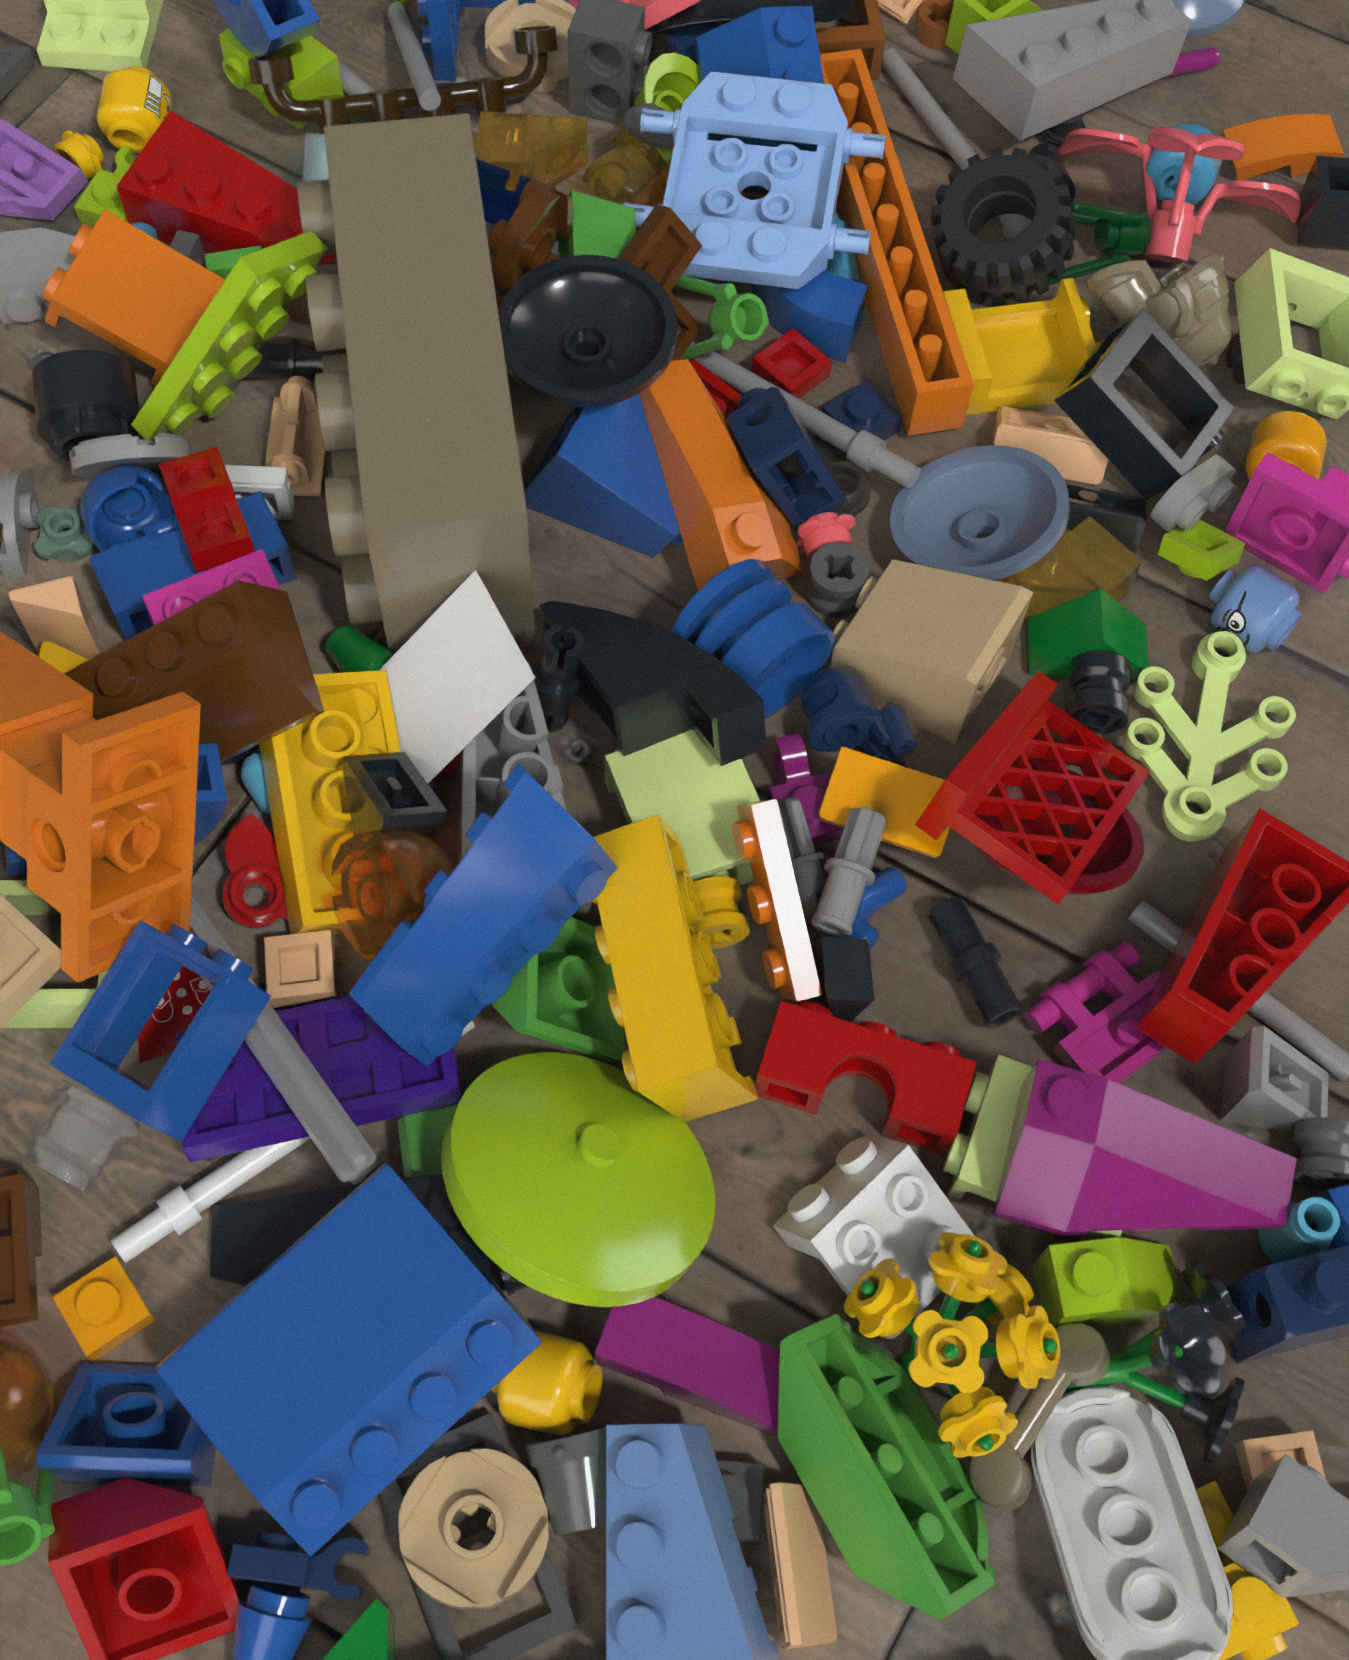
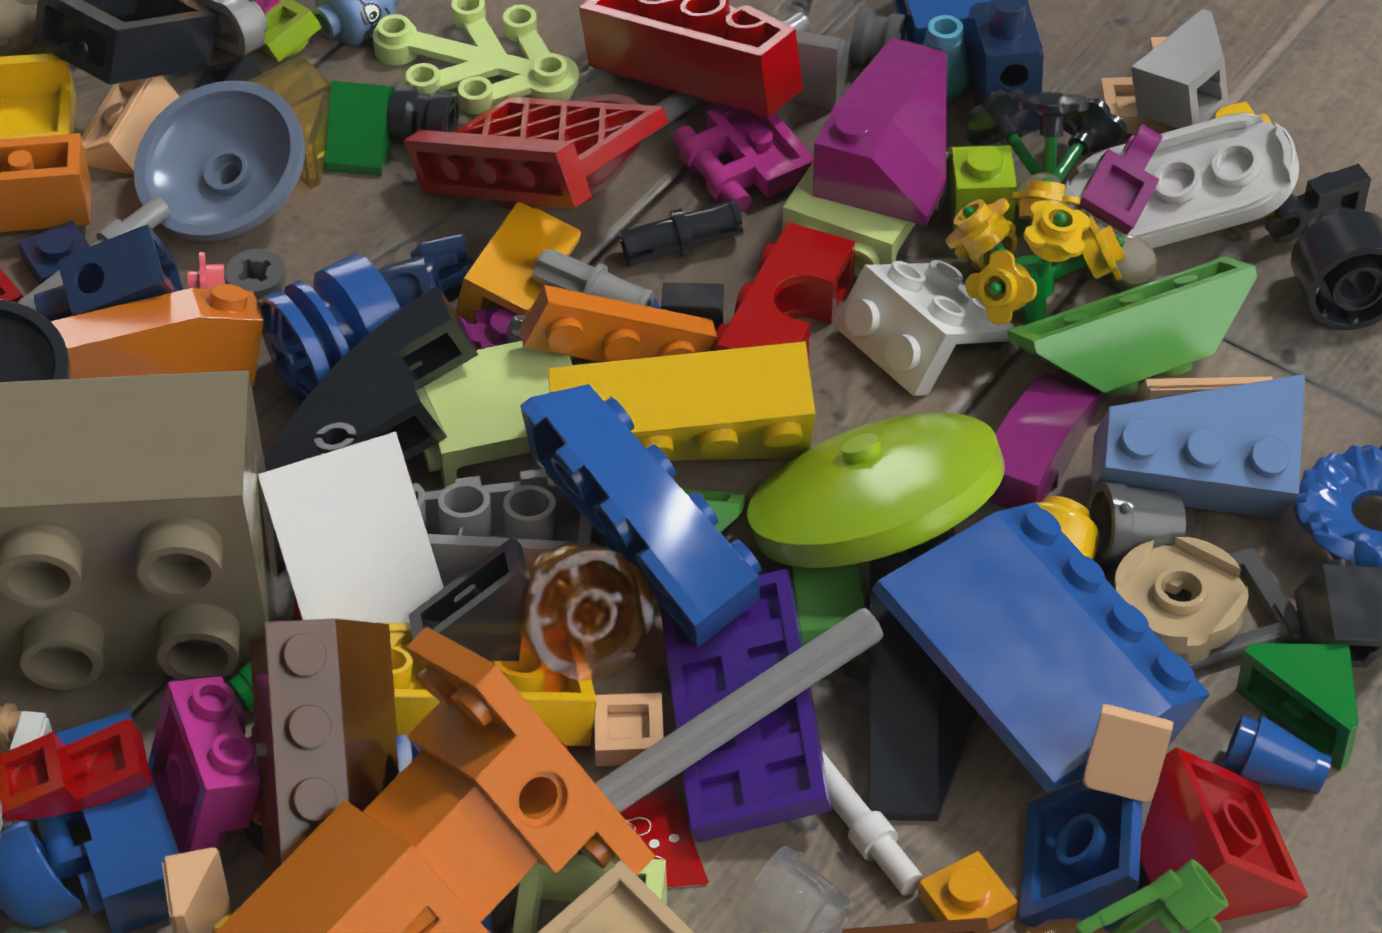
camera: 80 degrees left, 15 degrees down
(125, 1005) = (770, 831): blue window -> none
(166, 1443) = (1127, 753): none -> light nougat slope
(279, 1562) = (1212, 737): dark blue plate -> none
(931, 642) = (361, 193): tan slope -> none
(1089, 1449) = (1120, 184): none -> magenta plate

